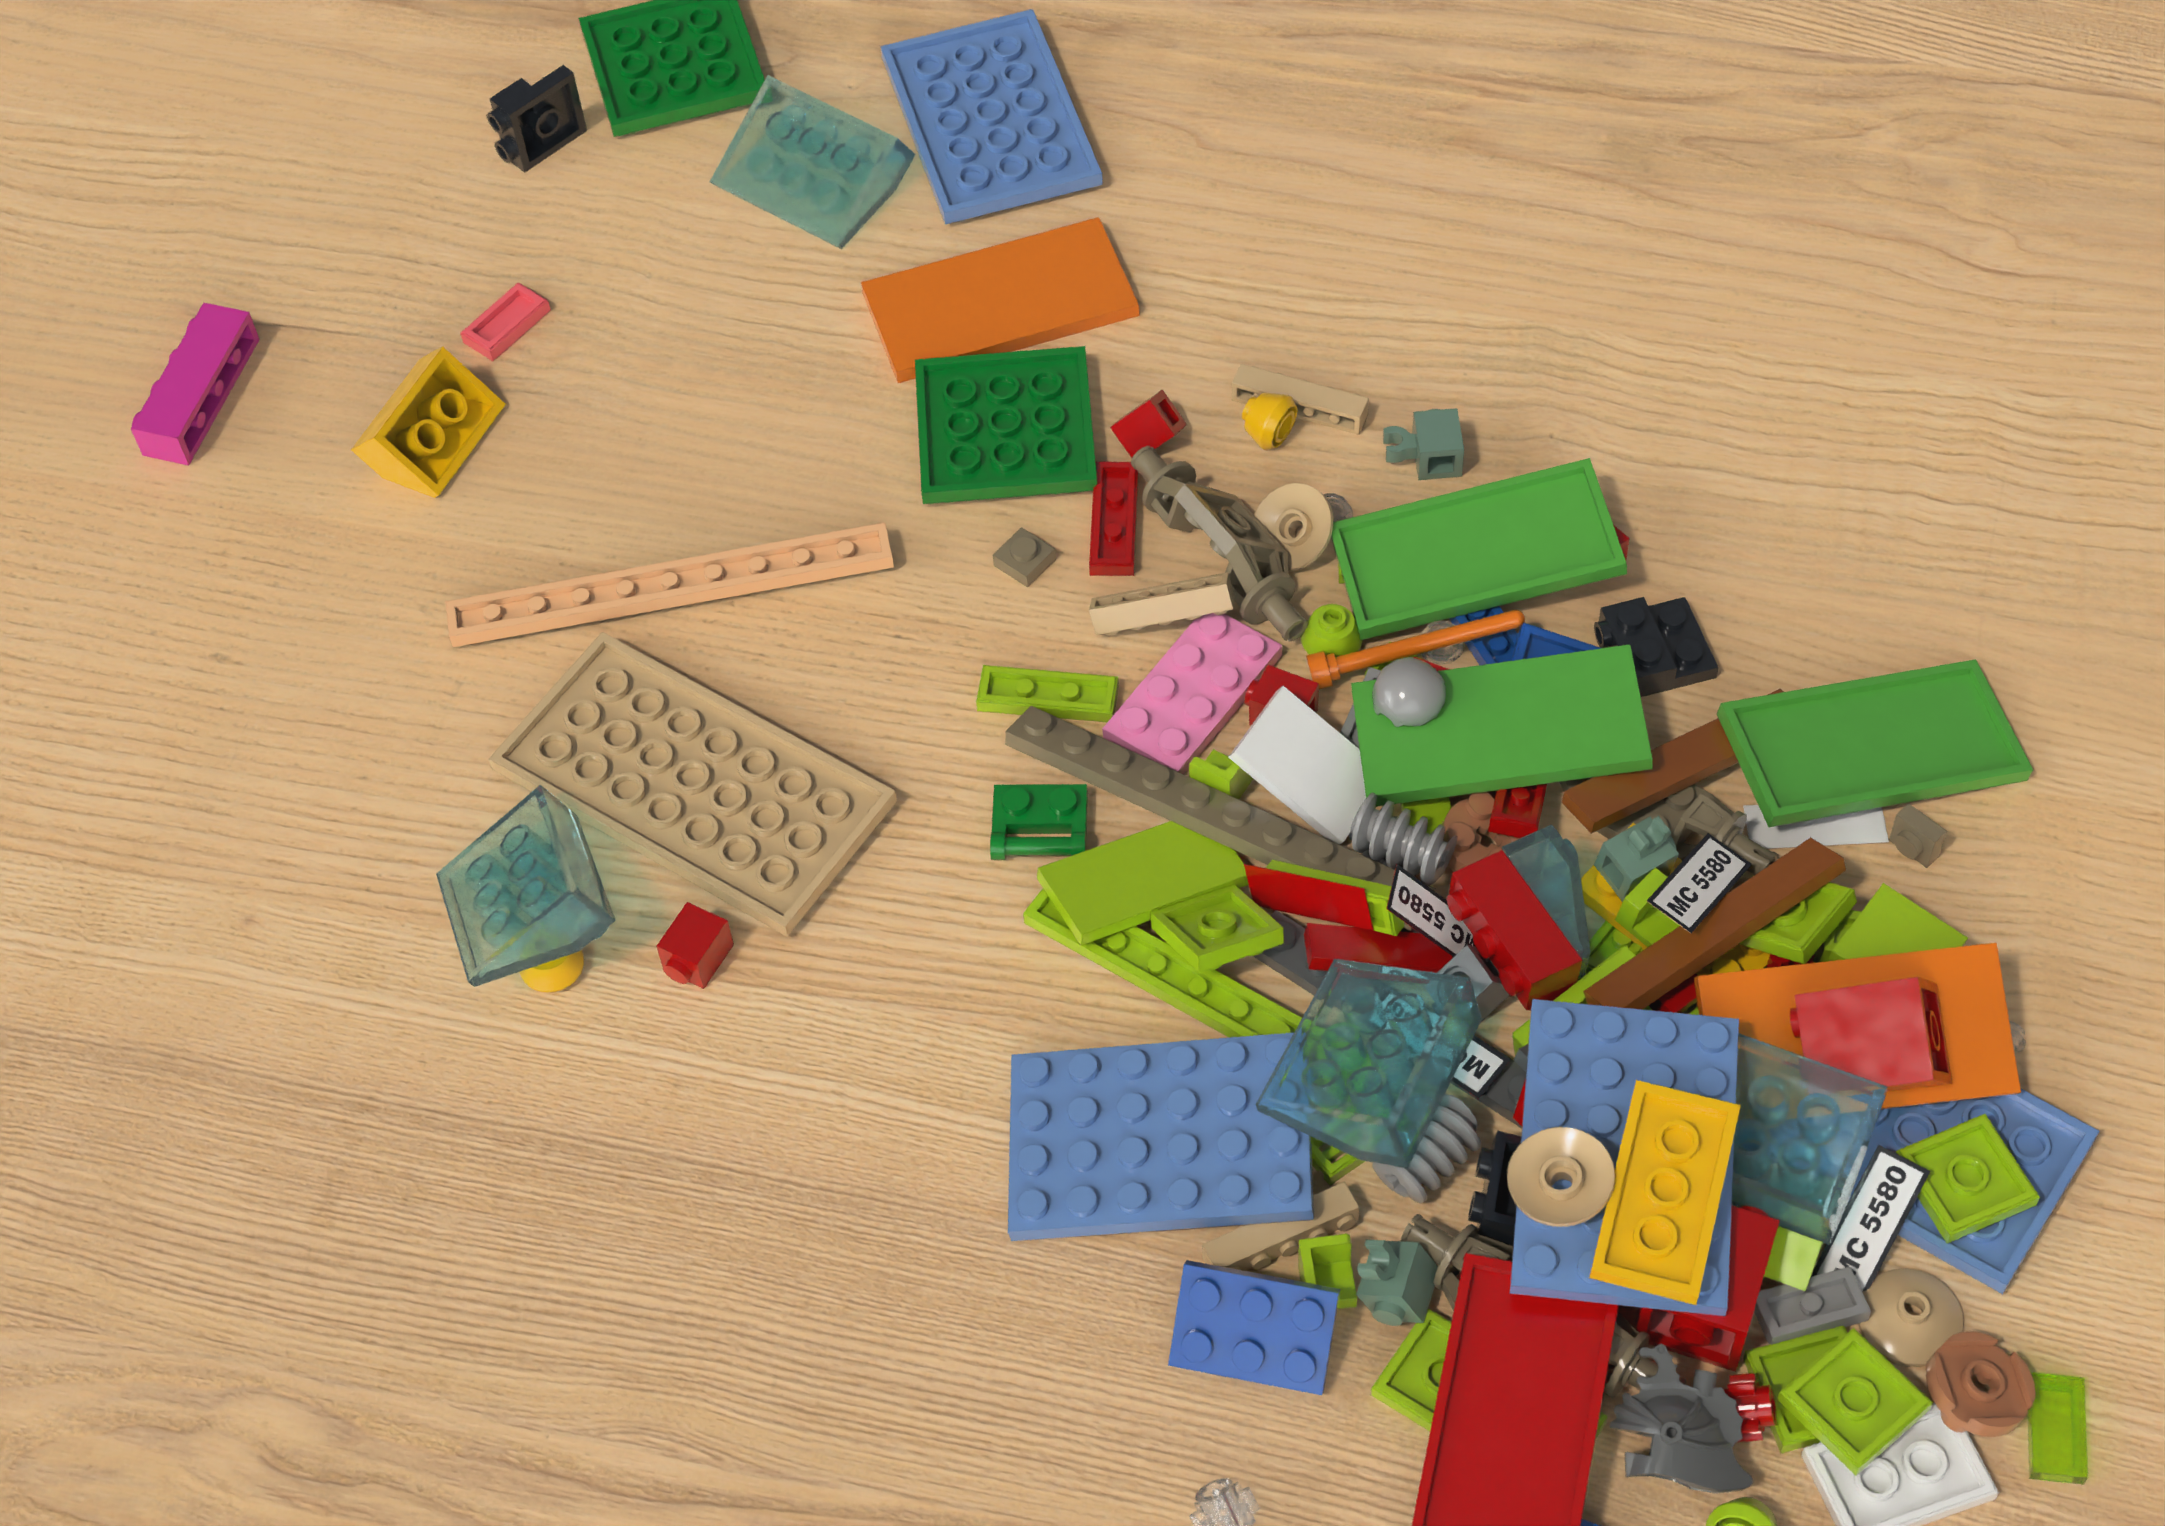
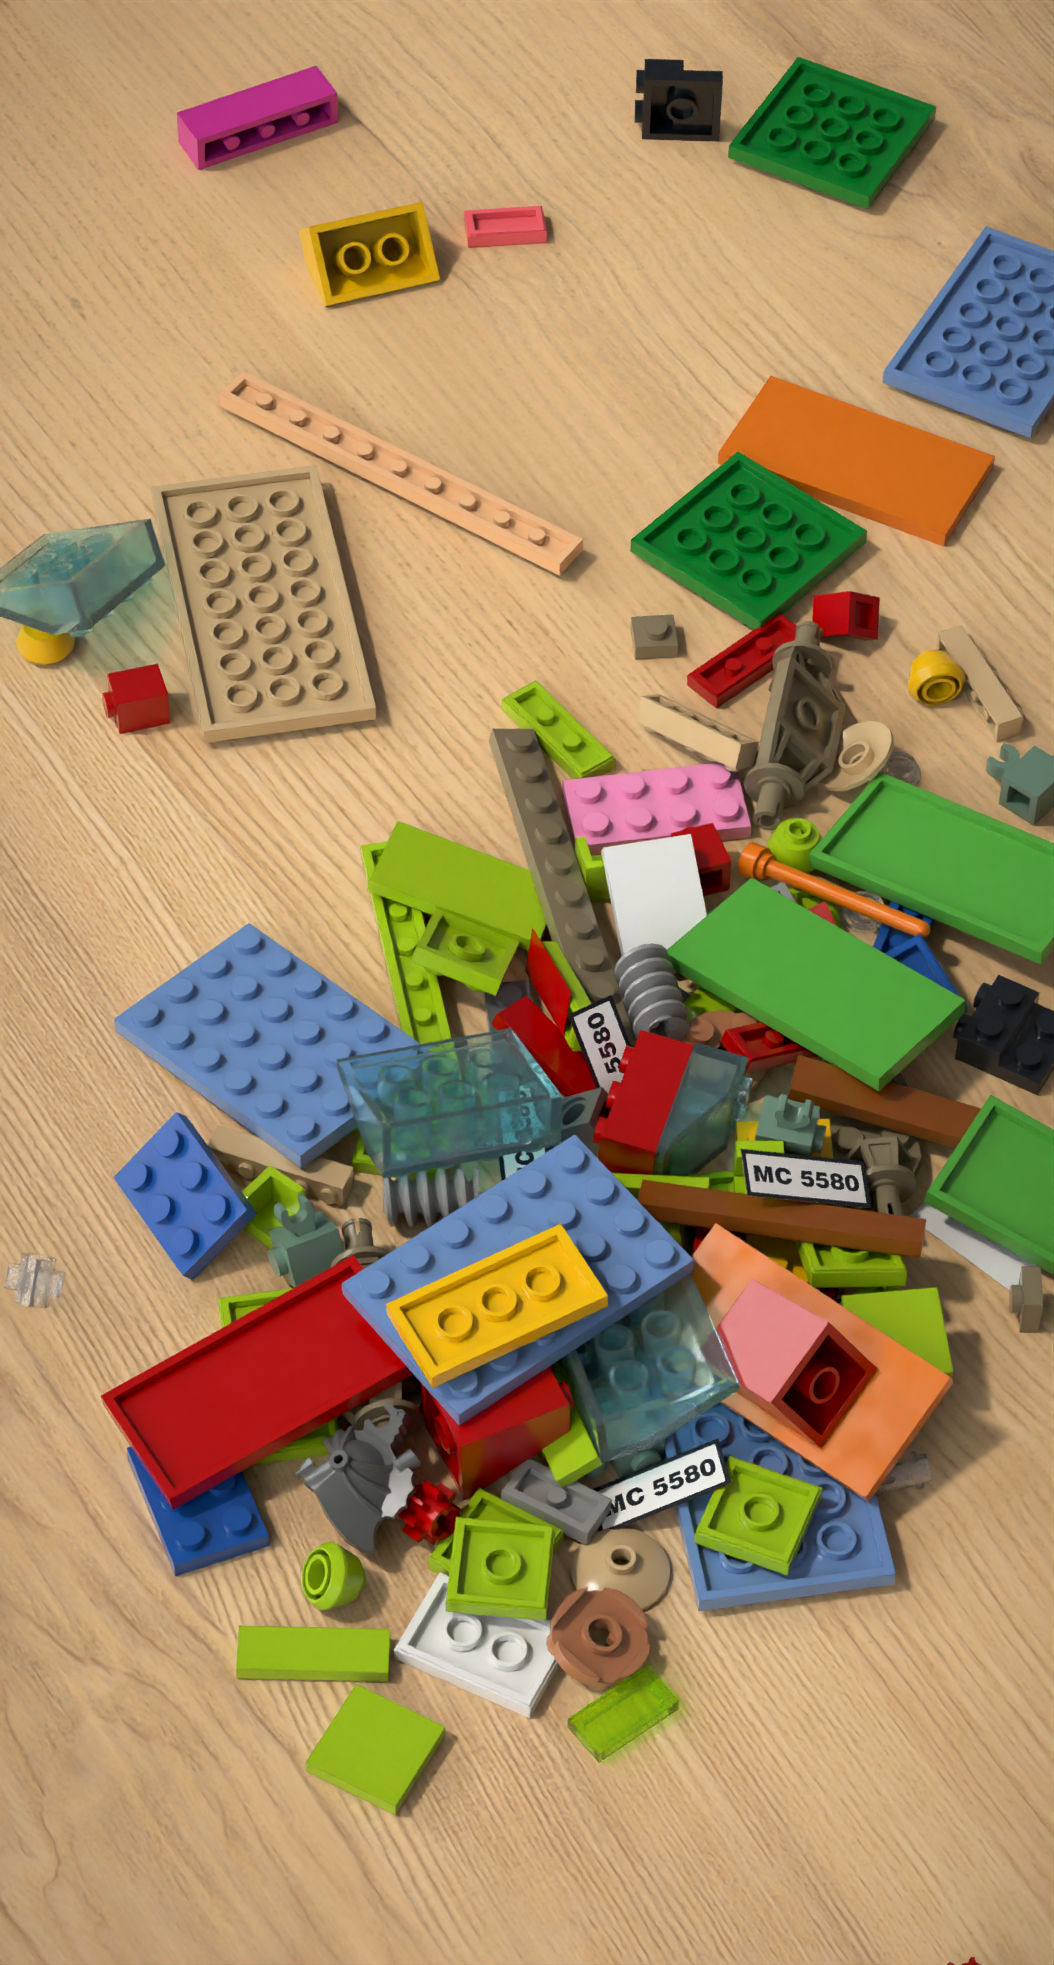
camera: 40 degrees right, 5 degrees down
(811, 163) = (835, 271): clear light blue slope -> none
(1039, 811) = (455, 796): green plate -> none
(1409, 692) = (773, 907): light grey hair -> none
(1556, 1156) = (438, 1237): tan dish -> none

